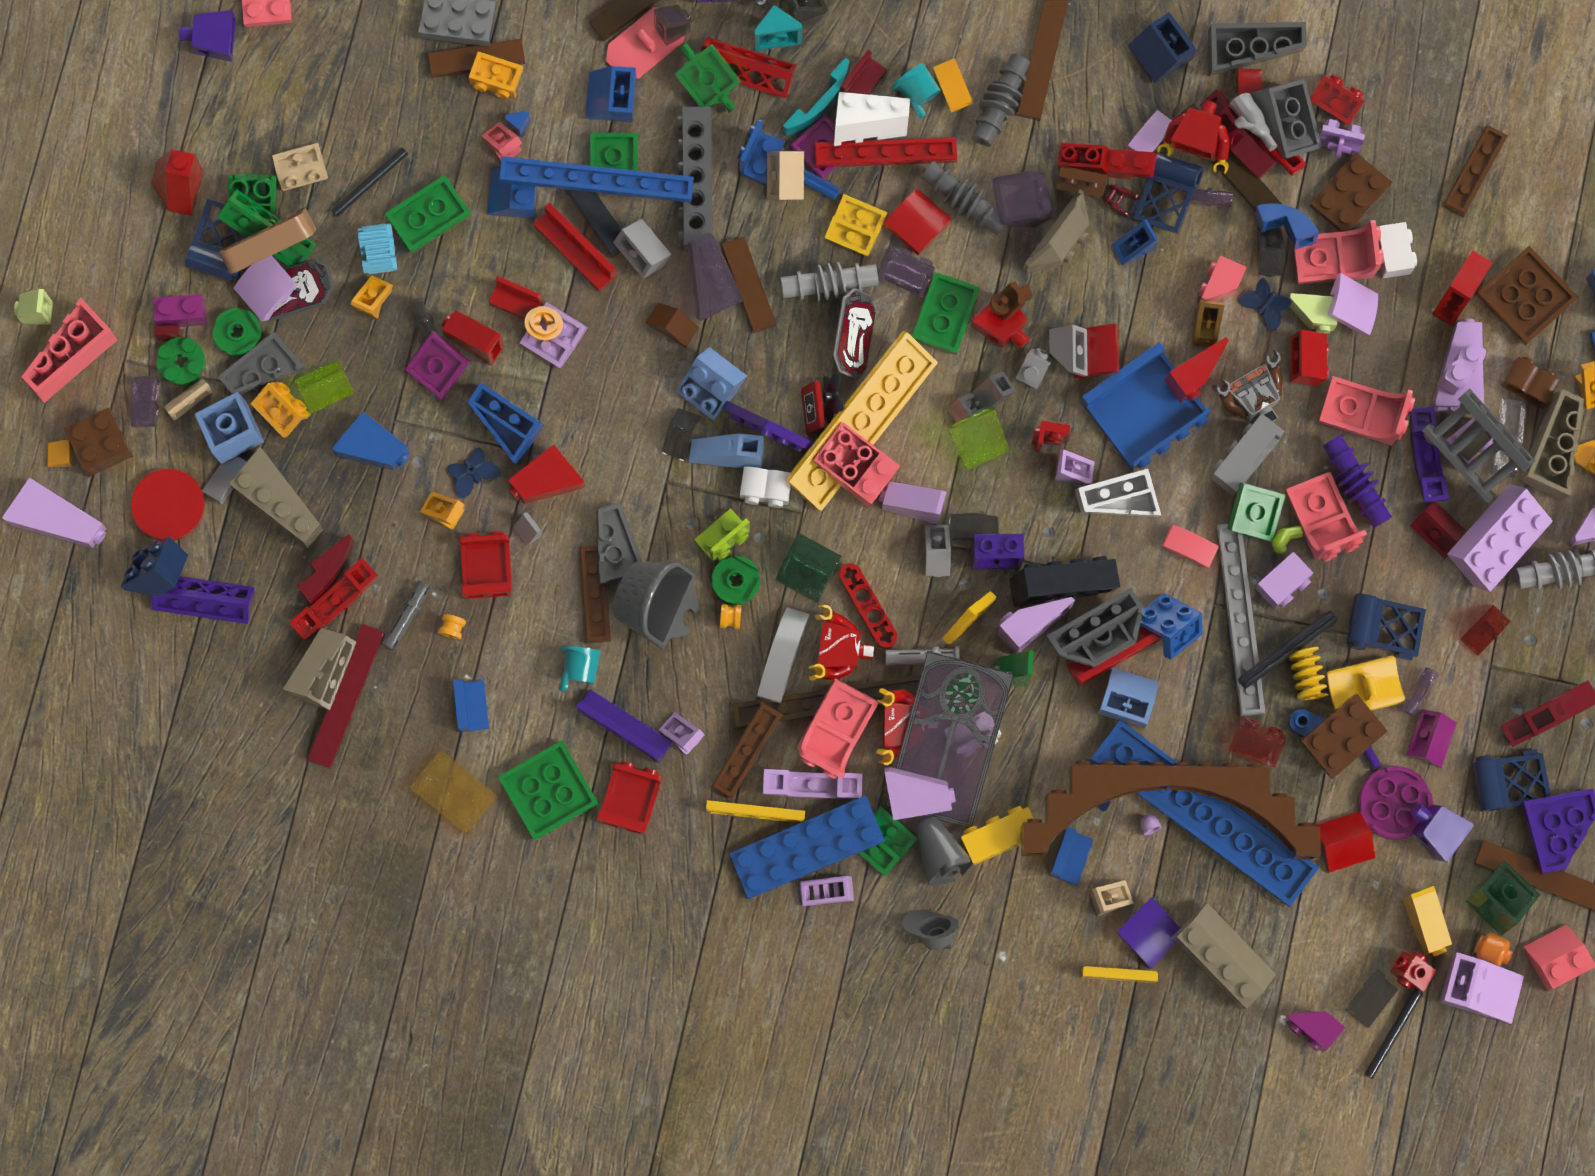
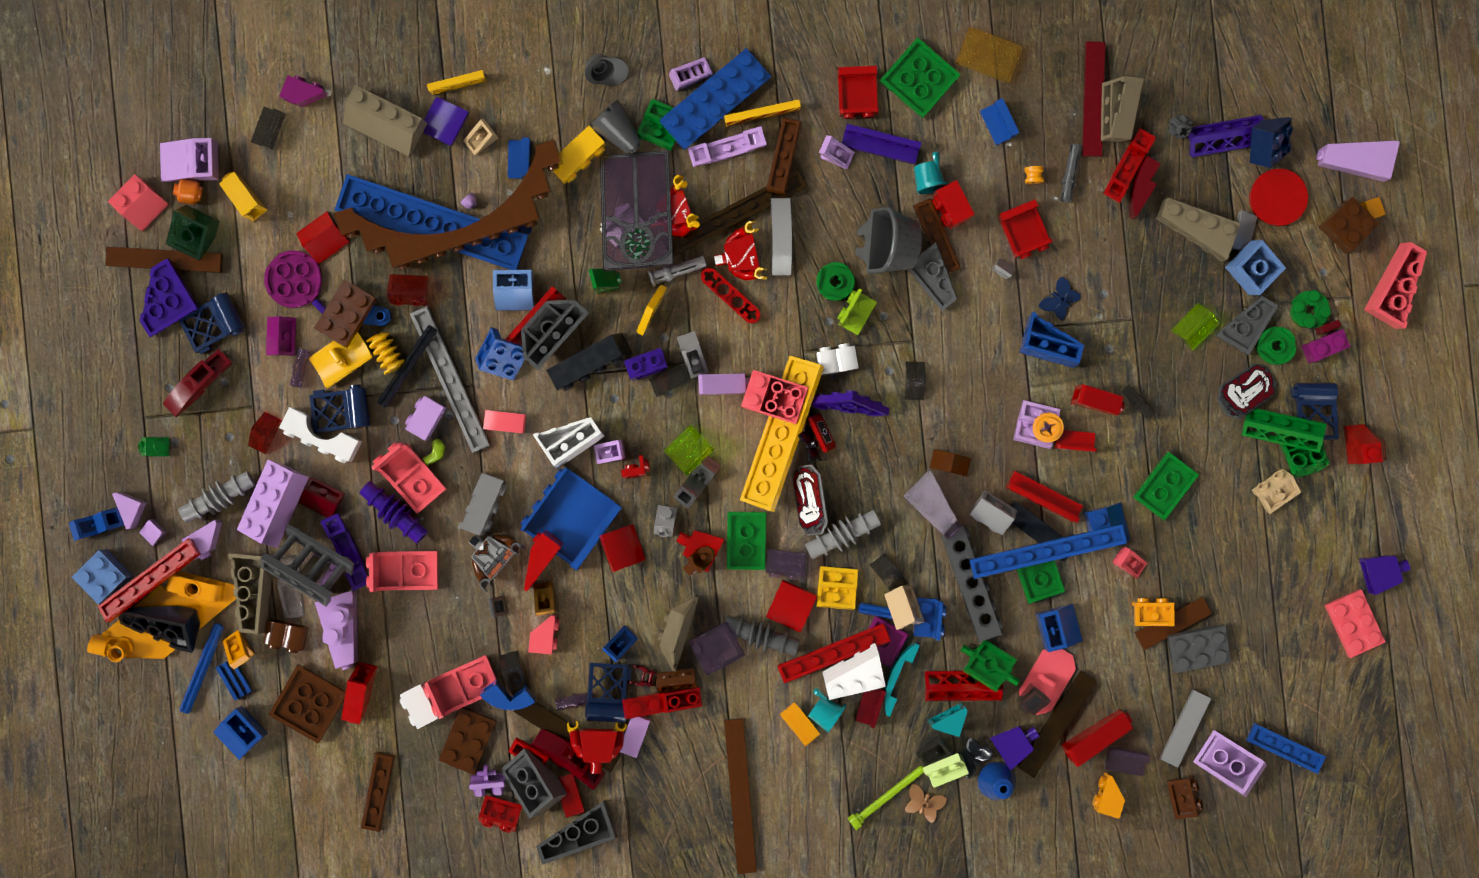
camera: 170 degrees right, 10 degrees up
(34, 308) = (1435, 311): yellowish green slope -> none
(143, 401) = (1325, 264): clear purple slope -> none
(188, 399) = (1294, 282): tan slope -> none
(255, 625) = (1180, 126): none -> dark grey gear
(264, 287) = (1268, 386): lavender slope -> none
(268, 241) = (1278, 418): medium nougat beam -> none
(280, 408) = (1222, 298): light orange bracket -> none
(369, 182) = (1218, 498): black bar -> none
(371, 444) = (1143, 293): blue slope -> none
(372, 296) = (1185, 405): light orange slope -> none
(377, 248) = (1195, 443): medium azure brick -> none
(437, 365) = (1116, 370): magenta tile -> none
(443, 509) = (1072, 261): light orange slope -> none
(518, 122) = (1122, 582): blue slope -> none
(545, 477) = (1005, 311): red slope -> none
(563, 619) = (952, 205): none -> red brick
(711, 383) = (905, 426): medium blue slope -> none
(728, 450) = (875, 376): medium blue slope -> none
(730, 616) = (829, 252): light orange wheel -> none
(749, 284) = (903, 513): reddish brown tile -> none
(790, 222) = (888, 572): none -> clear smoke slope
(808, 567) = (784, 308): clear green slope -> none
(836, 728) = (723, 188): coral bracket -> none
(917, 794) = (647, 162): lavender slope -> none
(999, 99) = (759, 721): dark grey piece -> none
(1028, 624) = (606, 316): lavender slope -> none
(1069, 347) = (642, 542): light grey slope -> none
(1162, 48) = (648, 808): dark blue slope -> none
(1252, 118) = (559, 770): light grey piece -> none
(1256, 511) = (462, 462): plate -> none
(1267, 333) = (497, 606): none -> flat silver slope
(1268, 301) = (503, 632): dark blue piece -> none
(1308, 358) = (459, 596): red brick -> none
(1313, 311) = (464, 636): yellowish green slope -> none
(1353, 304) = (437, 650): lavender slope -> none
(1393, 1034) = (244, 108): black bar -> none
(1412, 971) = (242, 155): red brick -> none
(1440, 830) = (252, 267): torso -> none
(1441, 621) = (299, 424): none -> white arch

